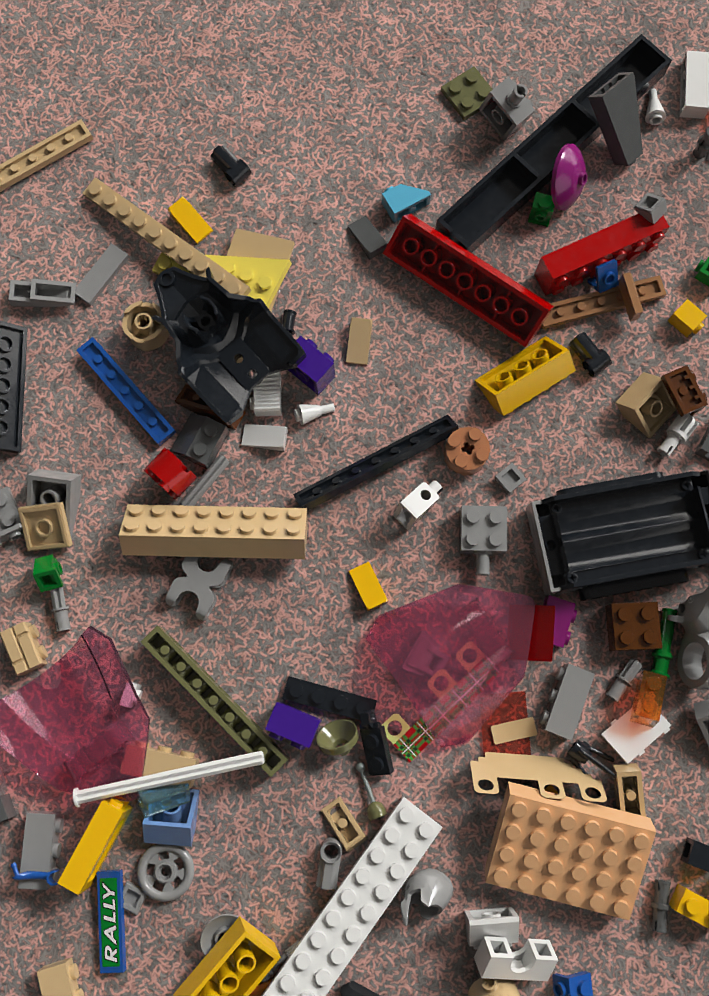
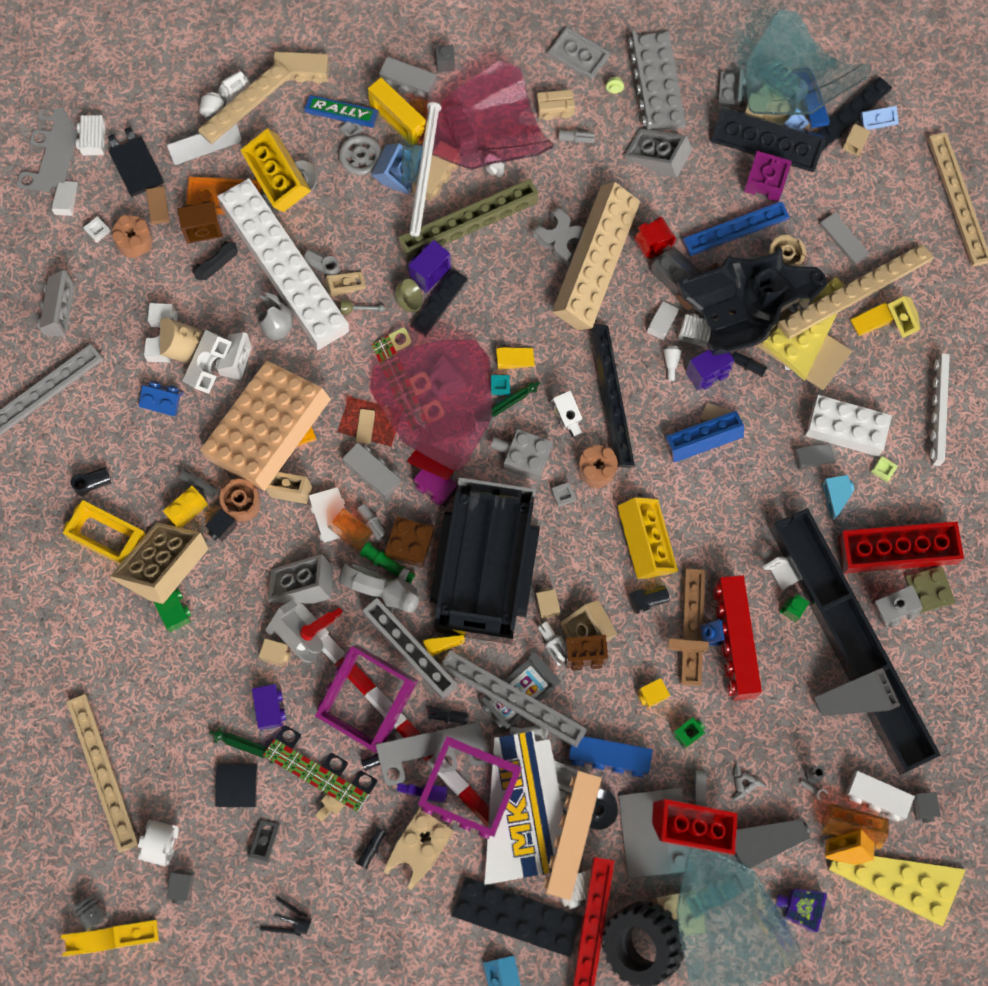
camera: 105 degrees right, 5 degrees down
(34, 875) = (387, 76): blue piece -> none
(41, 293) = (839, 189): light grey slope -> none
(45, 526) = (643, 141): tan tile -> none
(47, 573) = (606, 133): green brick -> none
(49, 372) = (768, 176): none -> magenta piece
(79, 818) = (420, 106): none -> clear orange plate
(179, 184) = (905, 315): none -> light yellow slope
(205, 481) = (640, 265): light grey axle -> none
(233, 169) = (910, 367): black piece -> none
(272, 127) = (939, 417): none -> white plate
(323, 210) = (848, 425): none -> white brick
(356, 167) = (884, 468): none -> yellowish green tile
(375, 745) = (394, 320): black hinge -> none
(388, 349) = (705, 436): none -> blue panel
(408, 591) = (500, 384): none -> teal plate
(417, 570) = (531, 387): none -> dark green wheel
(440, 126) = (900, 547): none -> red brick
(467, 279) = (745, 516): red brick -> none
(509, 231) = (782, 572): none -> white bracket
(531, 767) = (331, 428): tan piece -> none
(568, 177) = (815, 631): magenta dish -> none
(582, 753) = (329, 467): black plant -> none
(638, 454) = (547, 603): none -> tan brick
(651, 207) = (759, 683): light grey slope -> none
(655, 112) = (861, 747): white cone -> none
(678, 848) = (231, 496): none -> nougat brick
(686, 40) = (926, 807): none -> dark grey brick

